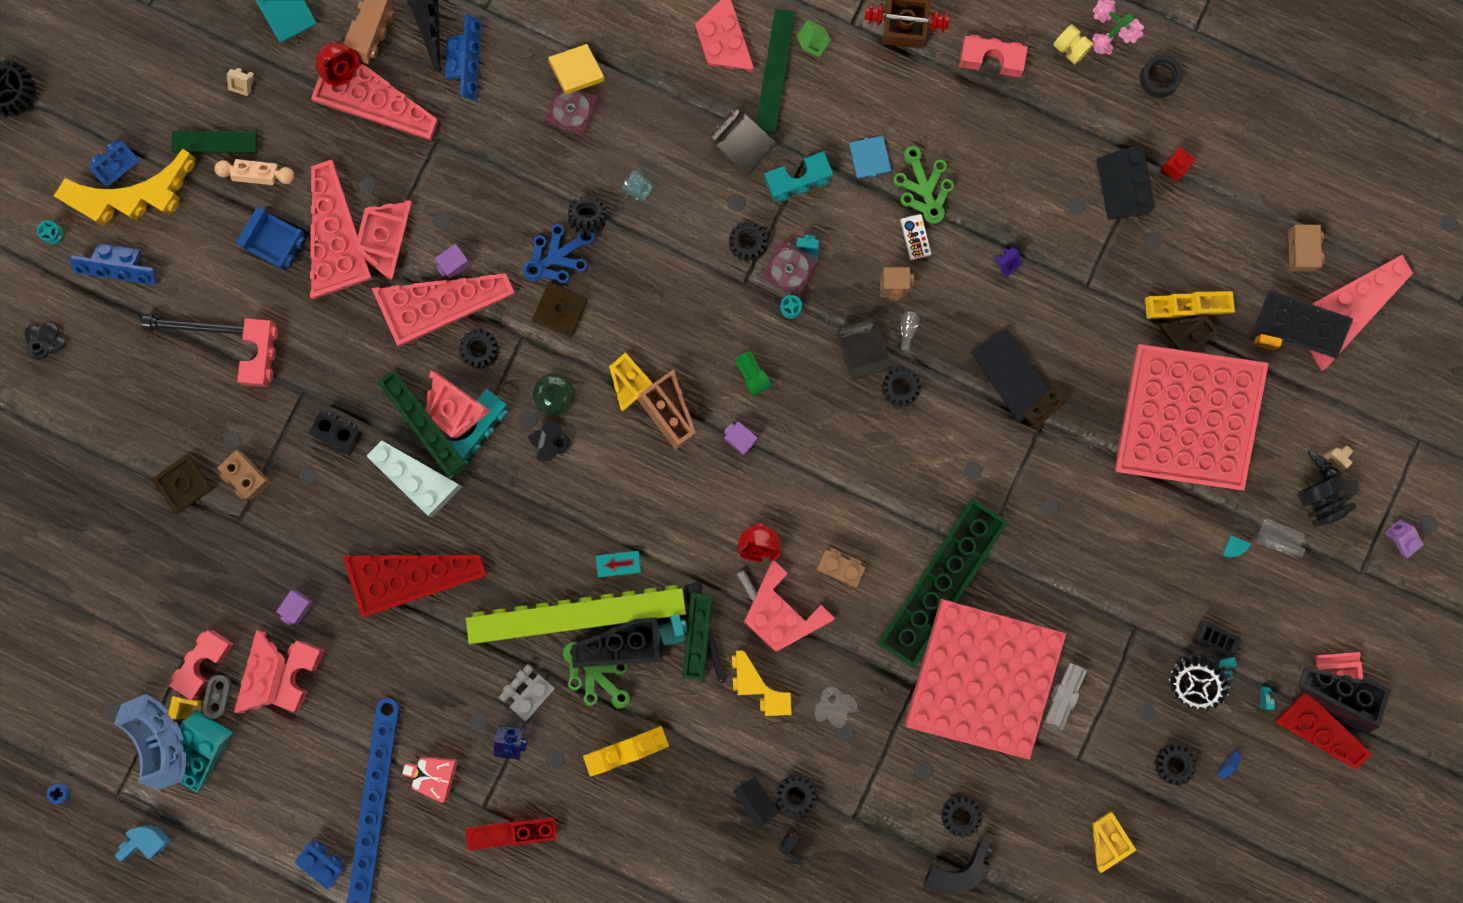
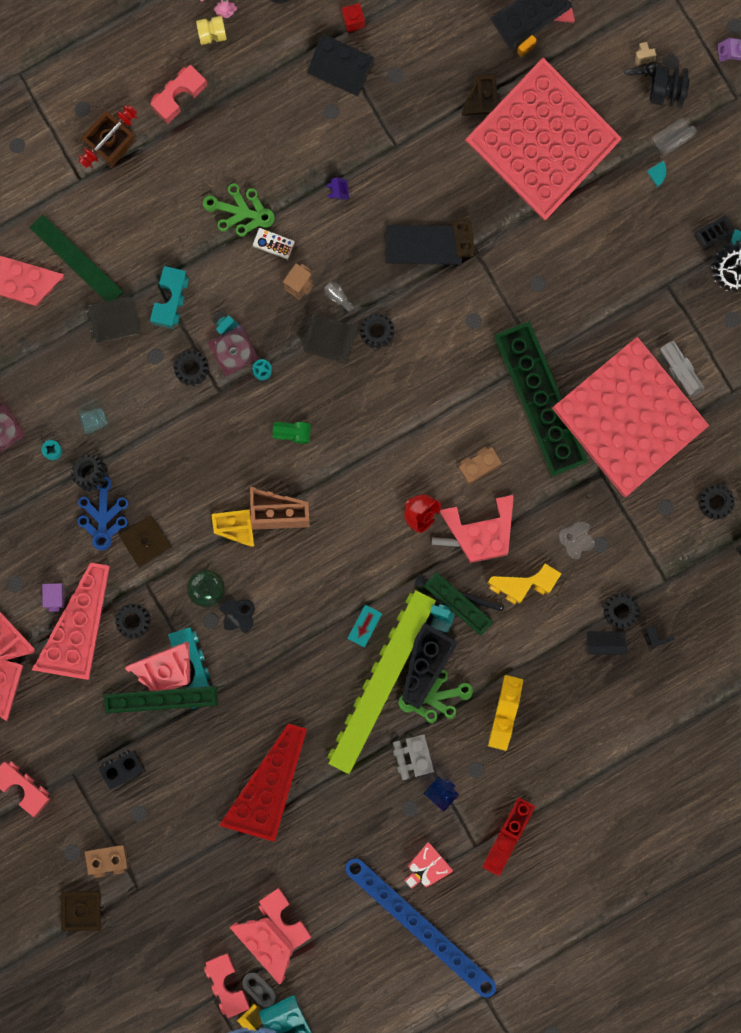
camera: 55 degrees left, 0 degrees up
(294, 608) = (233, 887): medium lavender brick -> none
(320, 864) = (435, 994): blue bracket -> none
(420, 483) = (202, 731): light aqua wedge -> none
(586, 173) = (54, 452): none -> teal wheel
(740, 438) = (333, 473): medium lavender brick -> none
(813, 38) = (72, 214): bright green panel -> none
(870, 157) = (190, 235): dark azure piece -> none
(1189, 305) = (461, 82): yellow slope -> none

